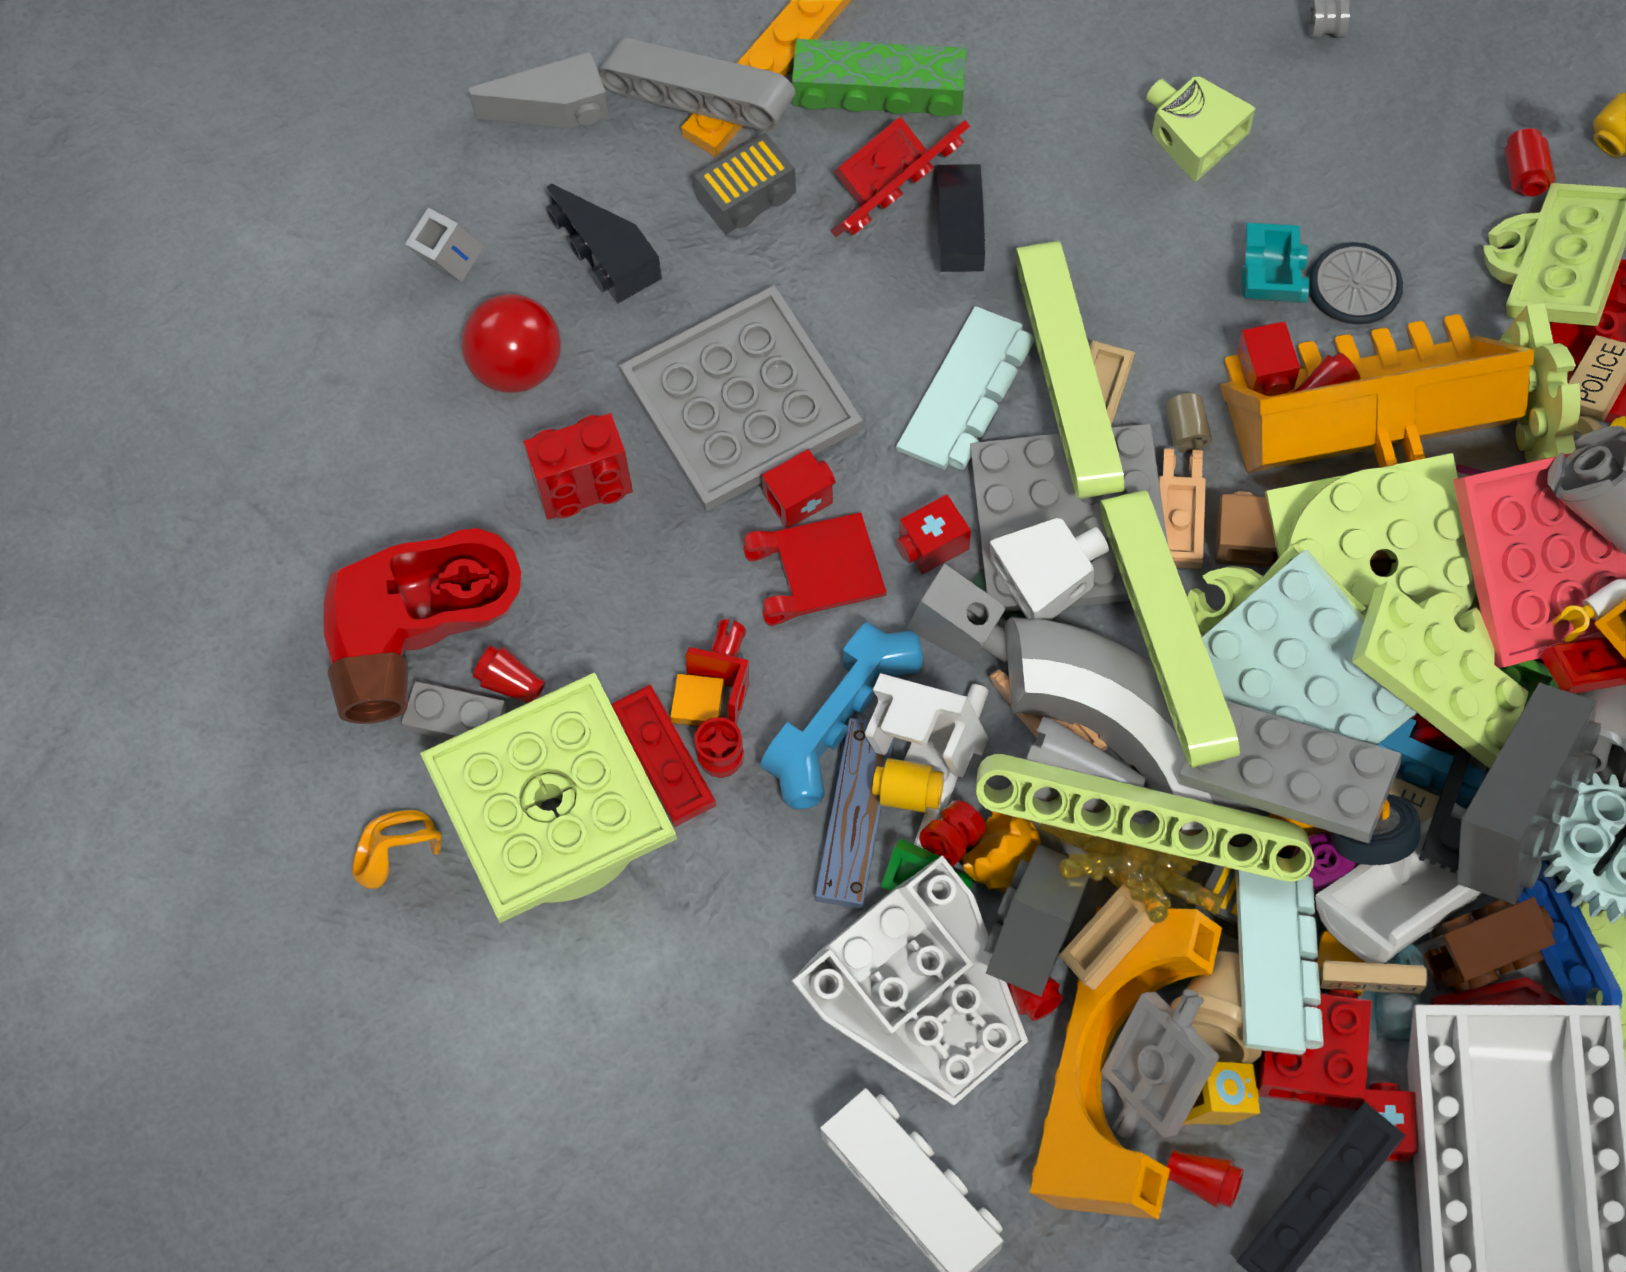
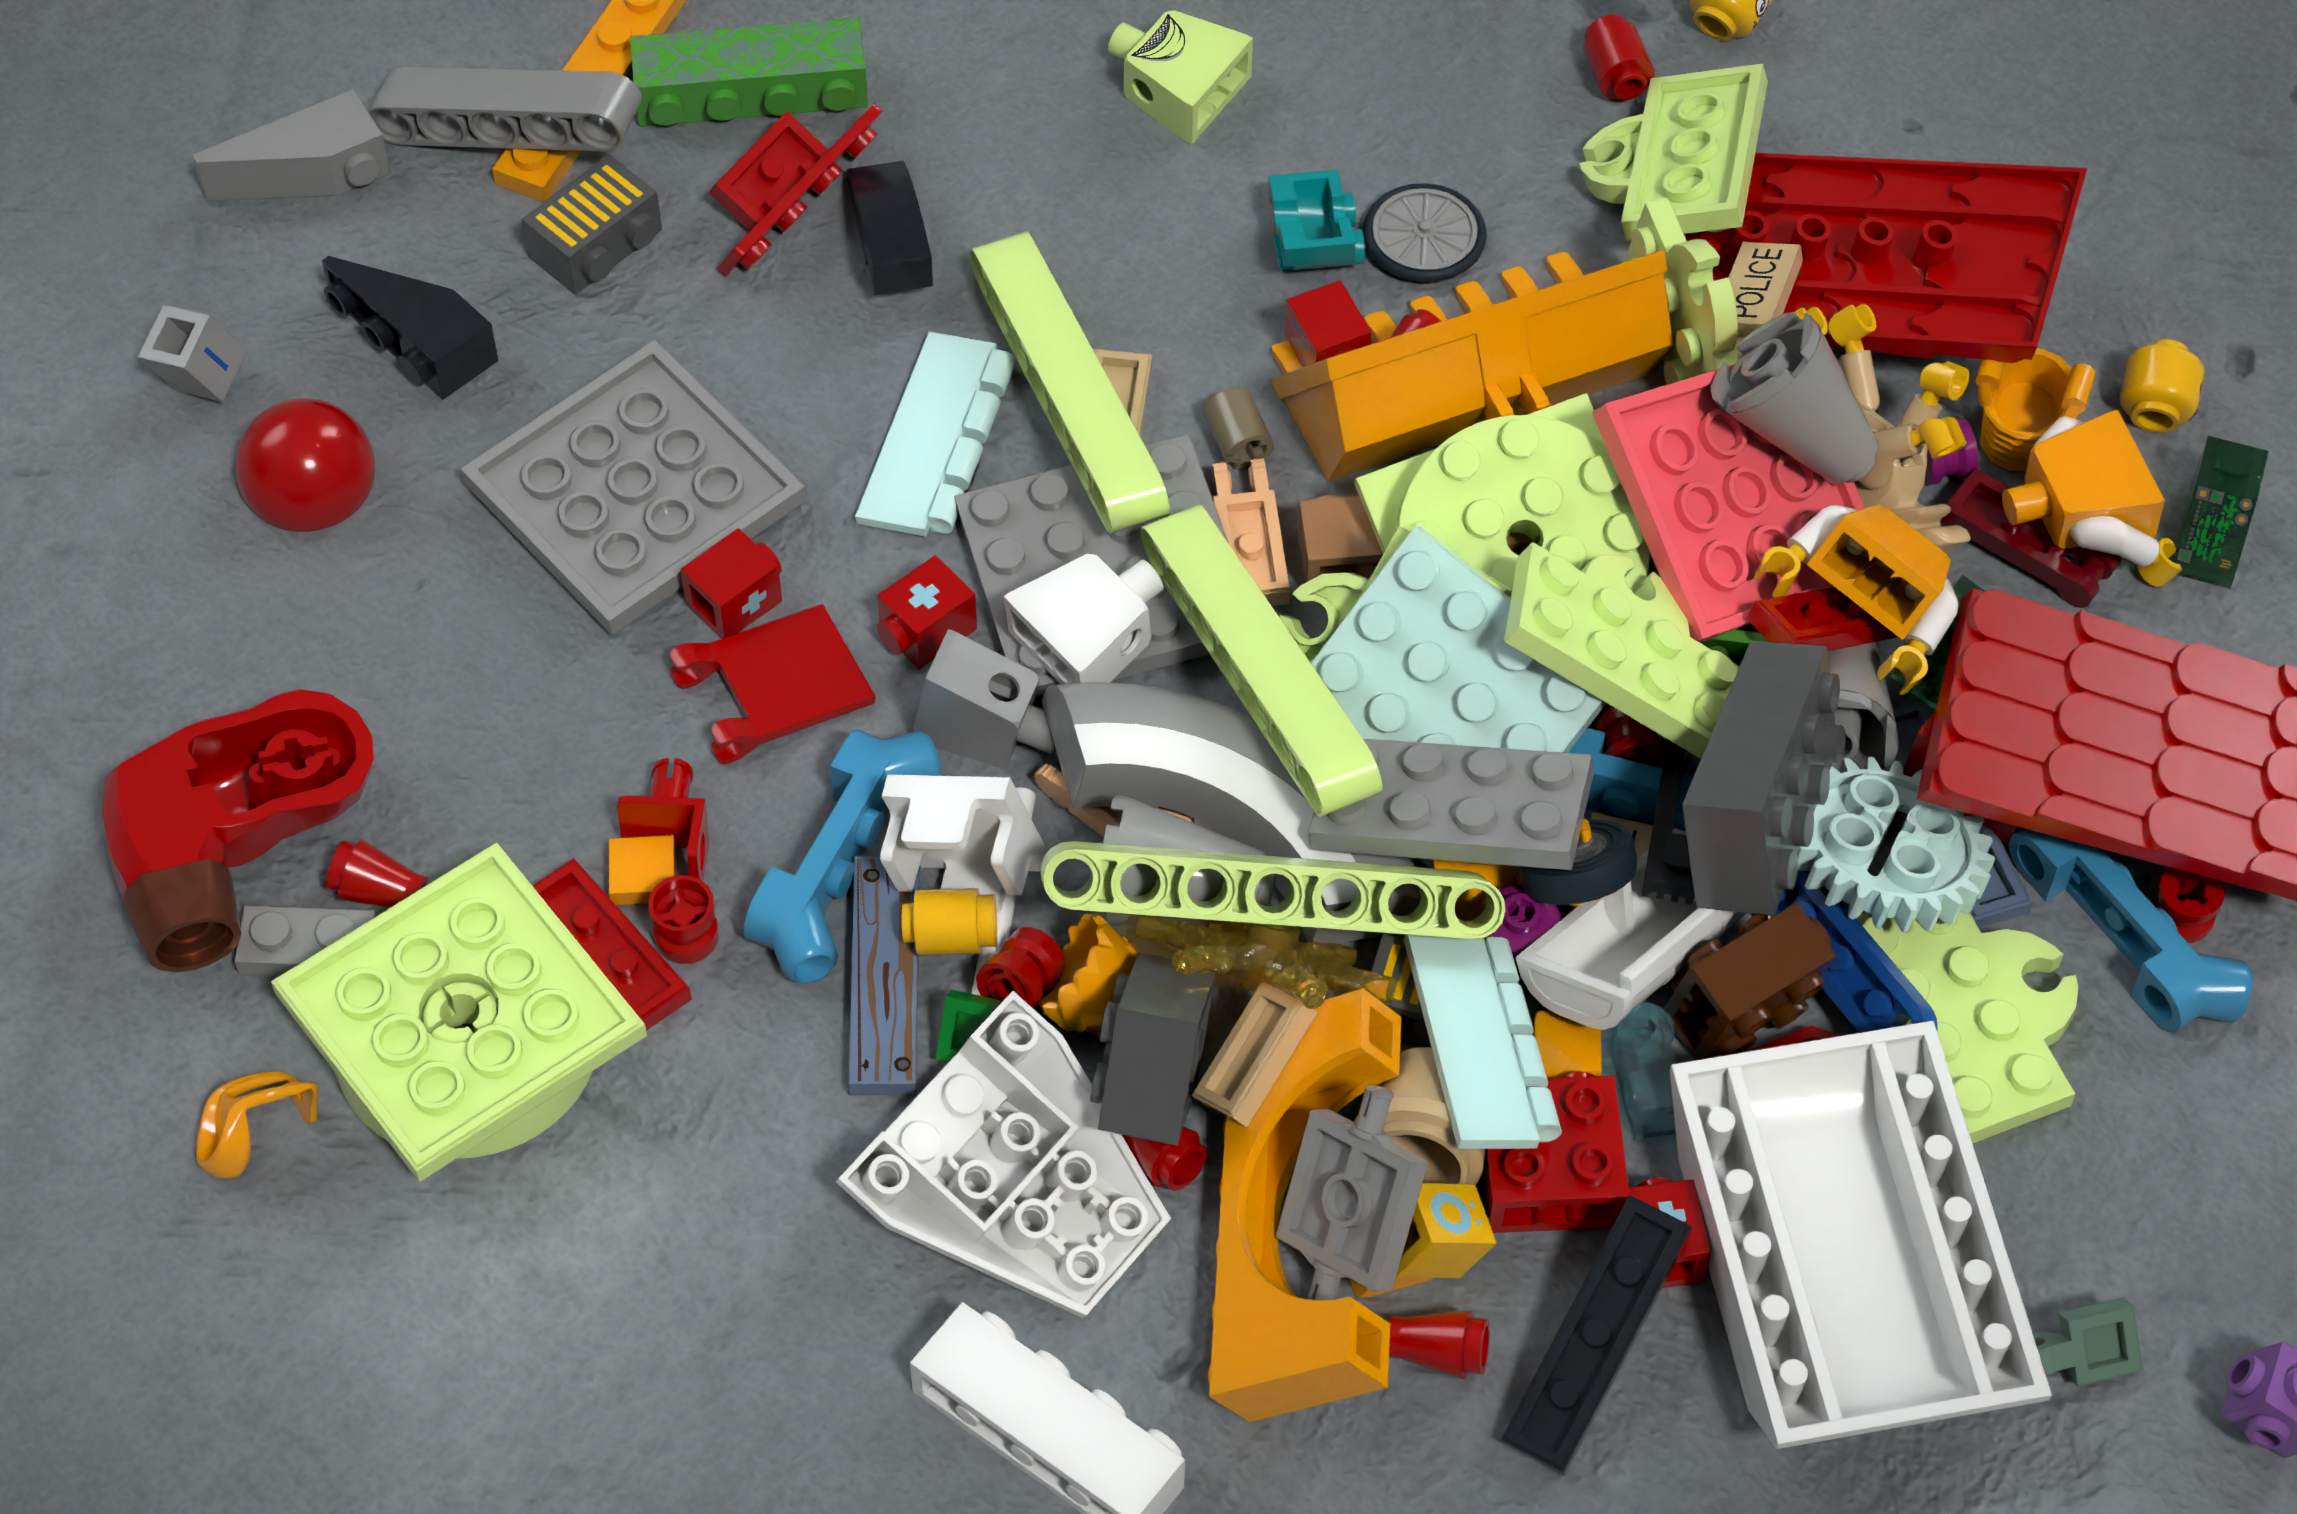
camera: 15 degrees left, 10 degrees down
(579, 466) = (428, 596): red brick -> none
(1372, 977) = (1610, 1044): tan tile -> none

